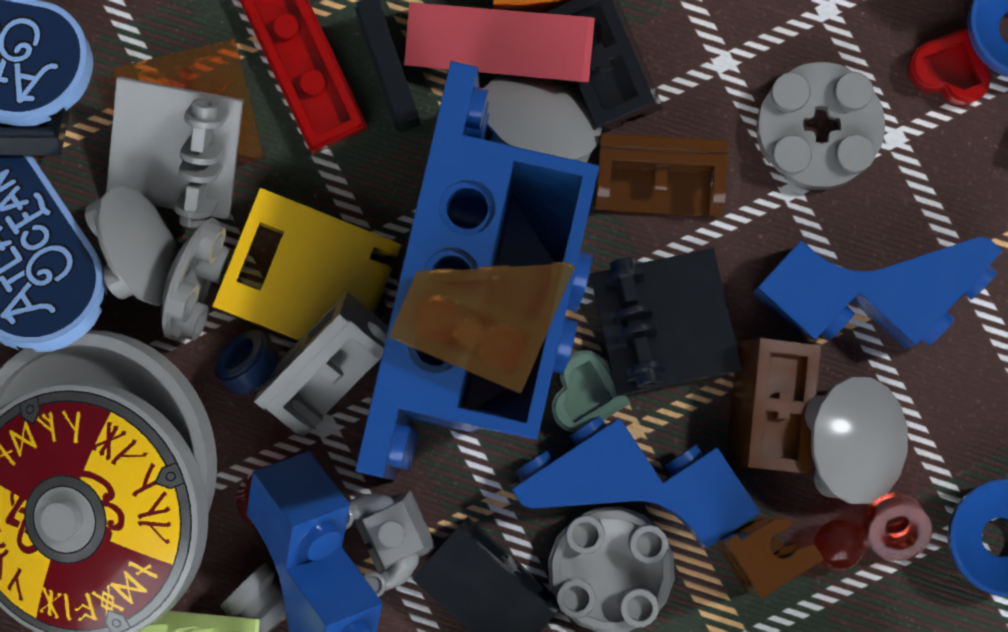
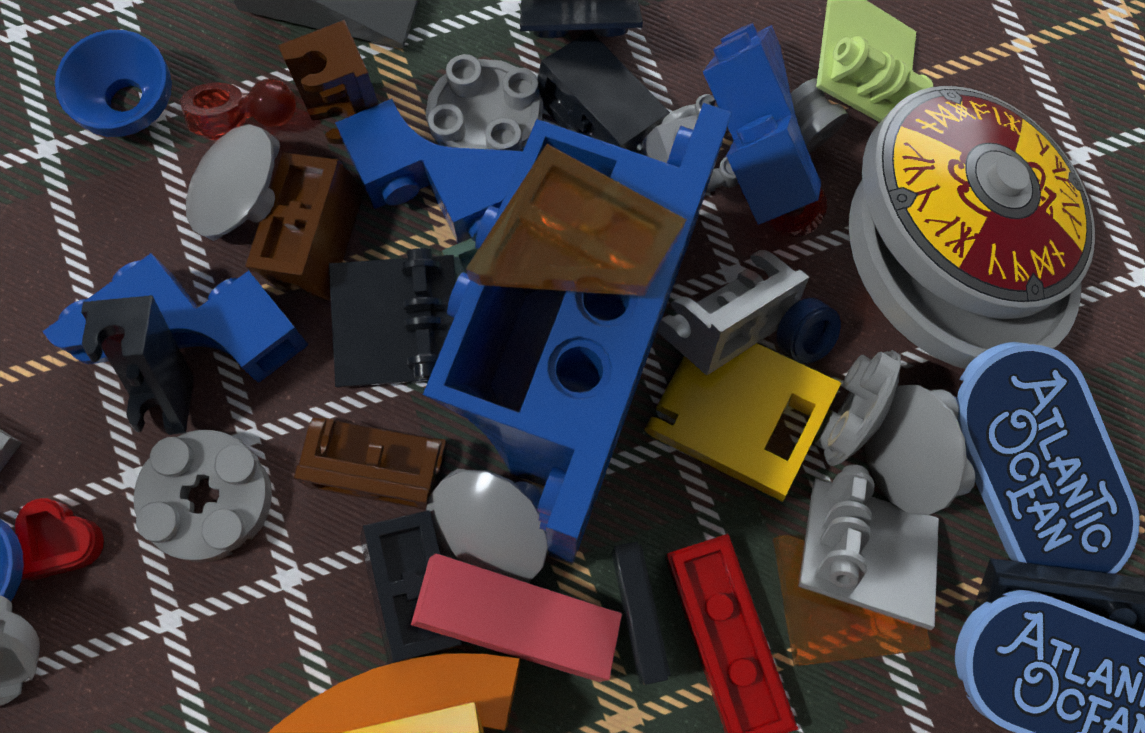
camera: 175 degrees left, 10 degrees down
(895, 234) = (143, 357): none -> black hinge

